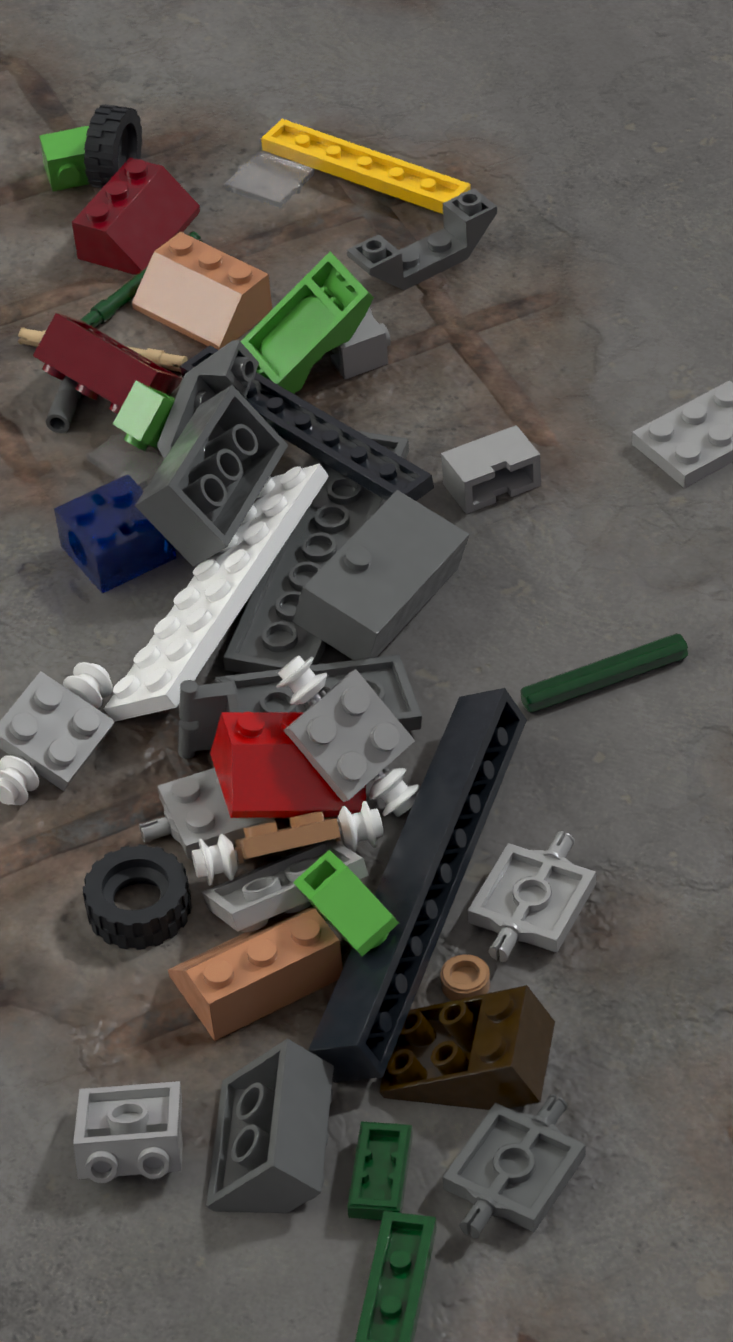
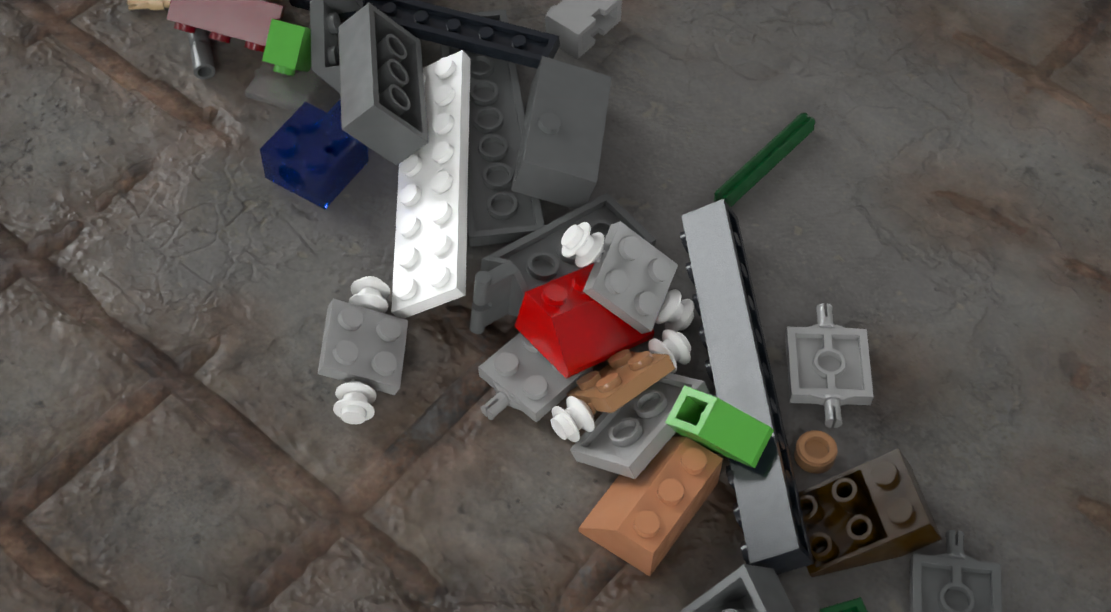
camera: 30 degrees left, 10 degrees up
(143, 926) = (519, 441): black tyre -> none

